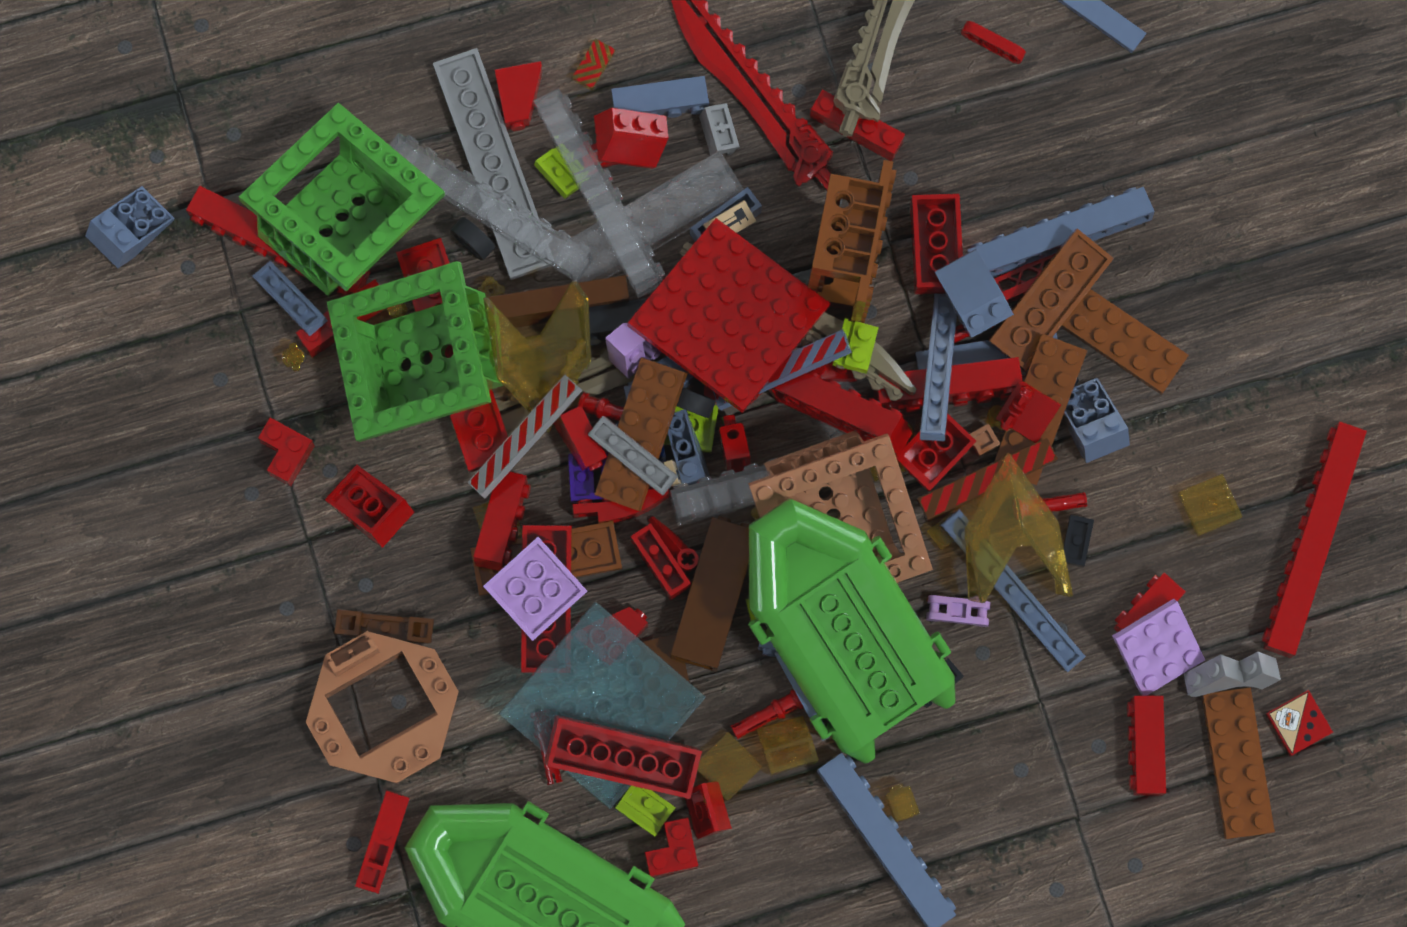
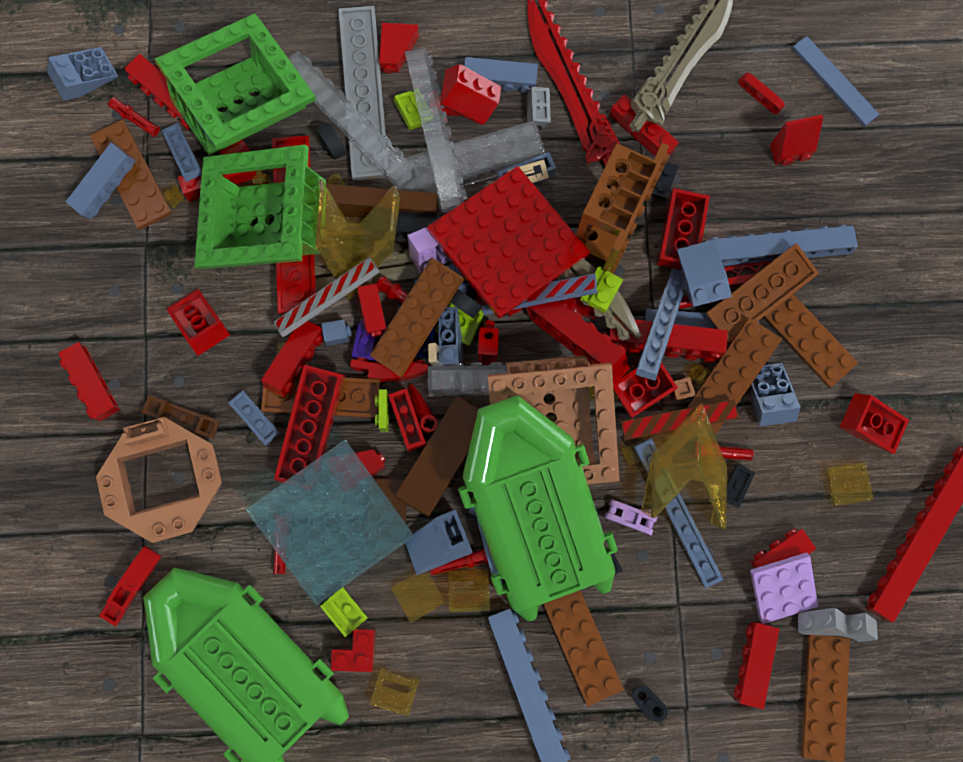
camera: 15 degrees right, 0 degrees up
(201, 360) = (101, 181): none -> sand blue brick
(204, 264) = (127, 112): none -> red pin
(230, 341) = (138, 186): none -> dark orange plate
(258, 612) = (88, 381): none -> red brick
(291, 450) = (149, 265): red brick -> none
(471, 606) = (254, 418): none -> sand blue tile
(535, 588) = (300, 416): lavender plate -> none
(544, 476) = (336, 332): none -> sand blue brick
(593, 64) = (458, 39): tile -> none
(622, 756) = (334, 568): red brick -> none
(629, 566) = (382, 418): none -> lime plate
(633, 455) = (405, 331): light grey tile -> none
(708, 810) = (393, 627): red slope -> none
(730, 893) = (391, 698): none -> clear yellow plate
(737, 698) = (438, 543): none -> sand blue slope
(901, 185) = (665, 181): none -> black plate
(902, 803) = (548, 661): clear yellow brick -> none
(938, 776) = (583, 647): none -> dark orange plate
(1027, 411) = (724, 375): red hinge -> none
(1032, 821) = (648, 703): none -> black plate
(1050, 97) = (797, 140): none -> red slope
(1224, 423) = (874, 422): none -> red slope
(1299, 723) = (882, 677): tile -> none

